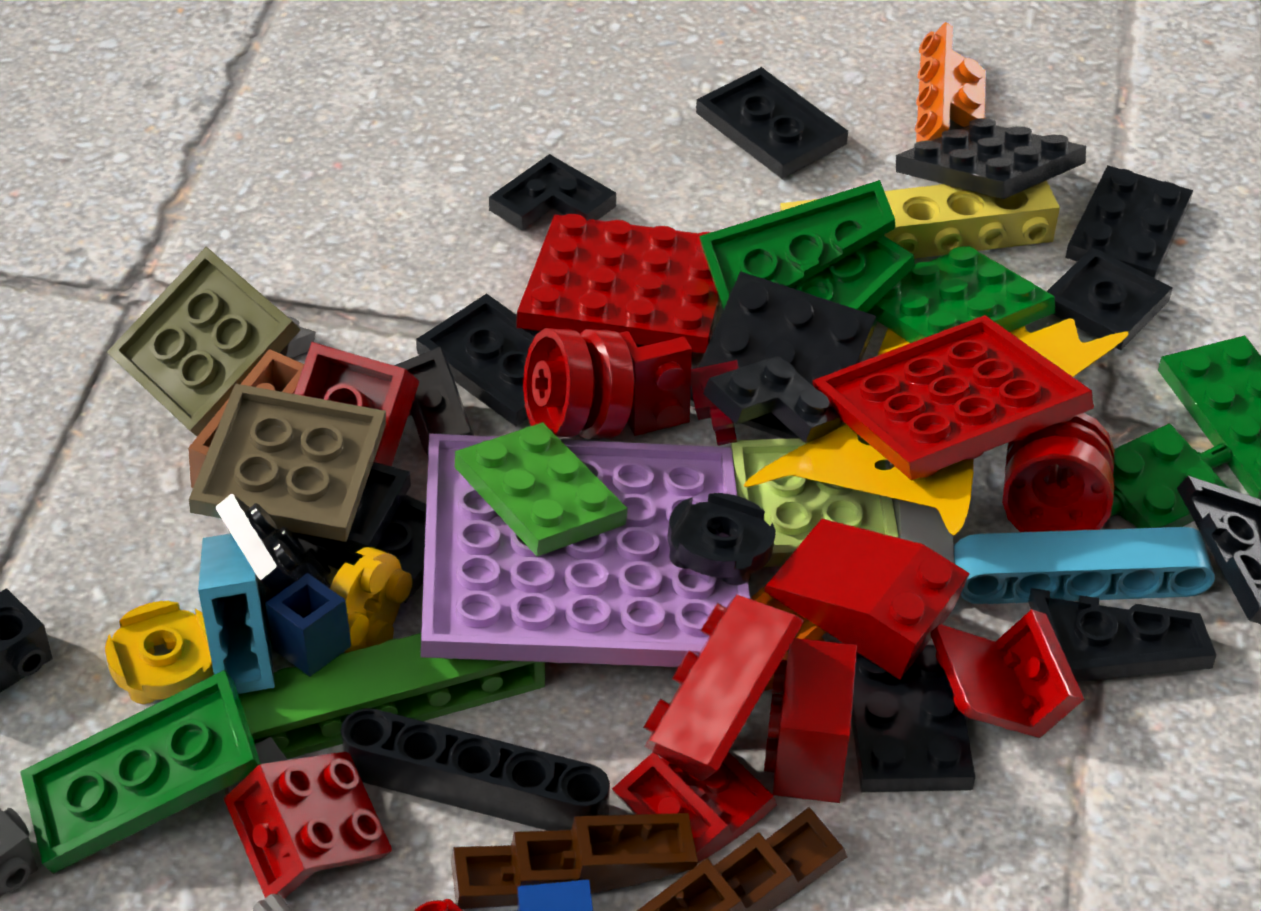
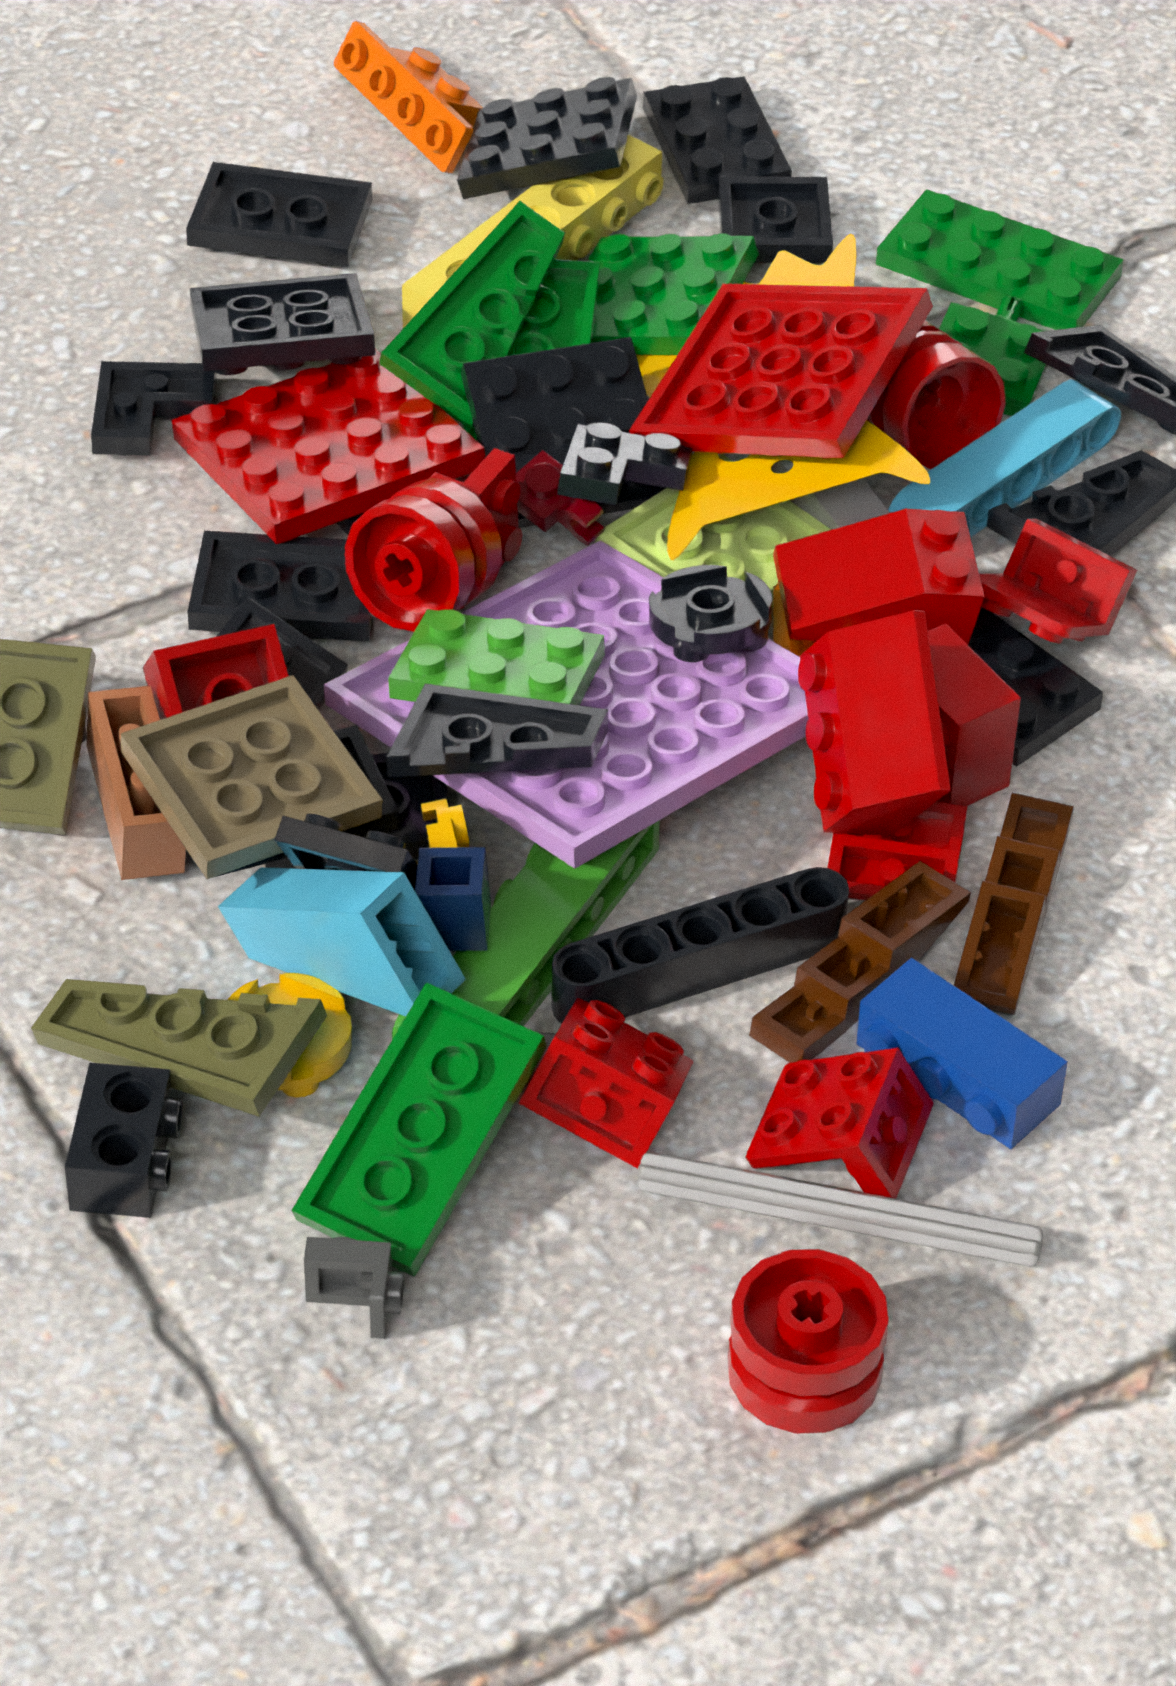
camera: 40 degrees left, 0 degrees up
(87, 614) = (212, 1046): none -> olive wing
(465, 528) = (493, 732): none -> black wing
(681, 188) = (281, 323): none -> black plate

